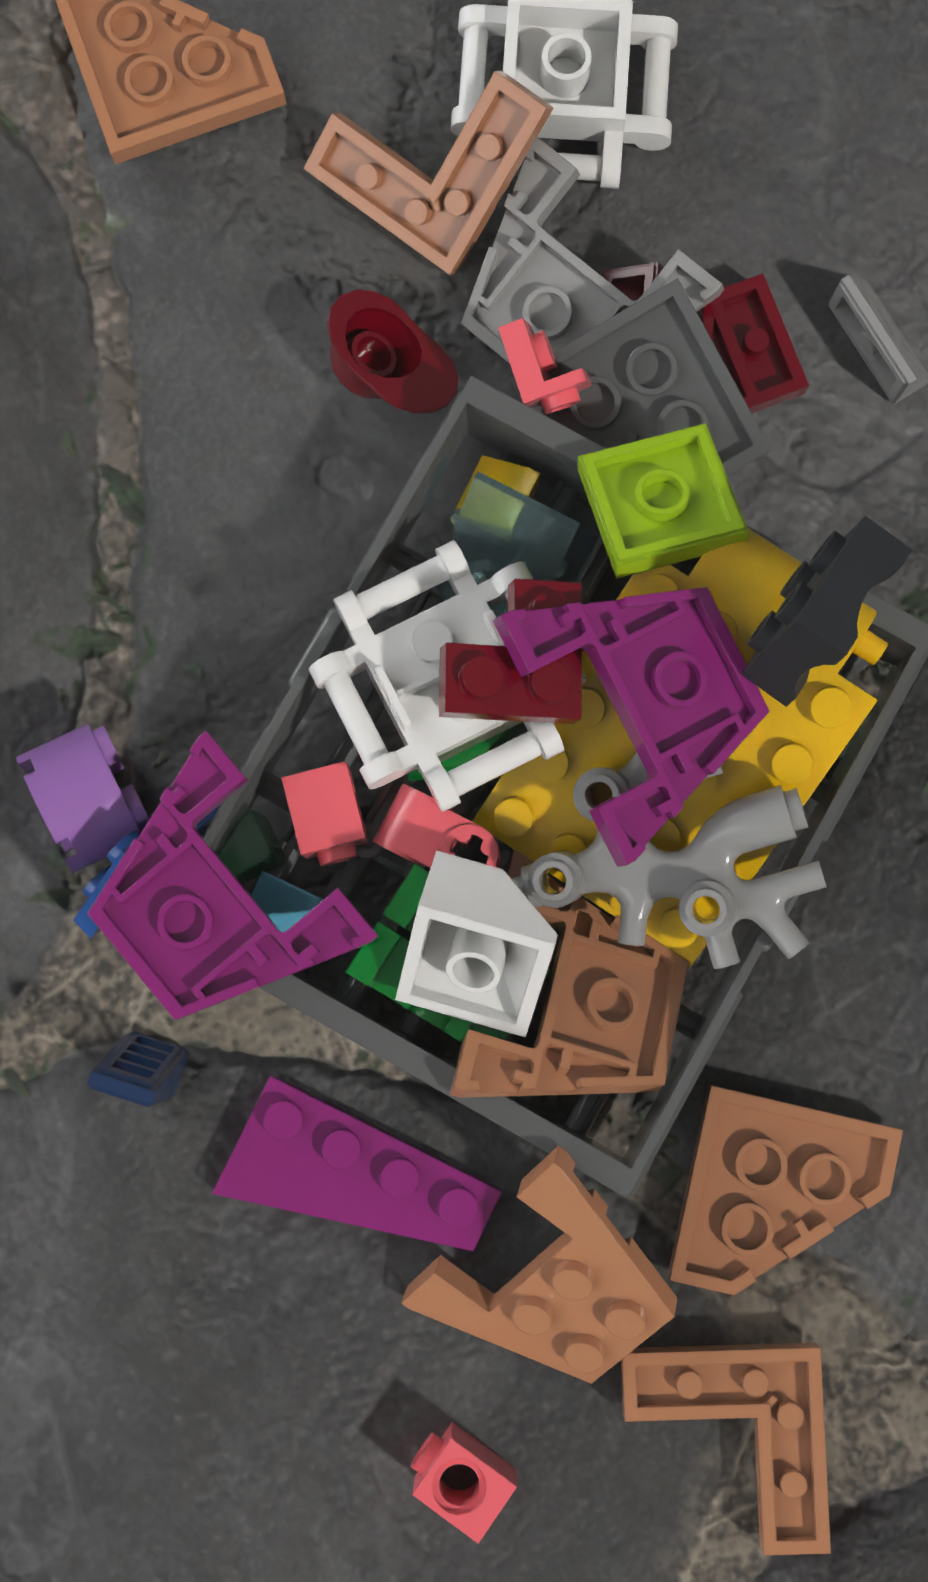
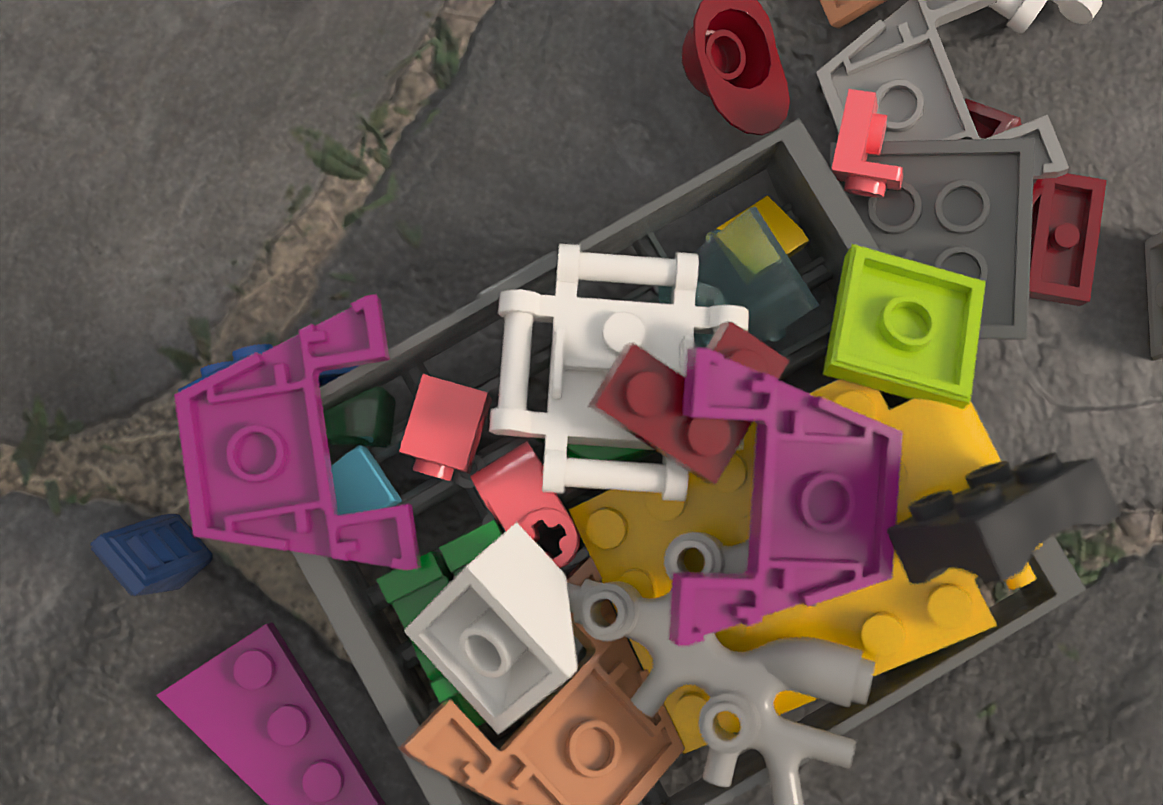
camera: 25 degrees right, 0 degrees up
(80, 795) = (246, 285): medium lavender brick -> none

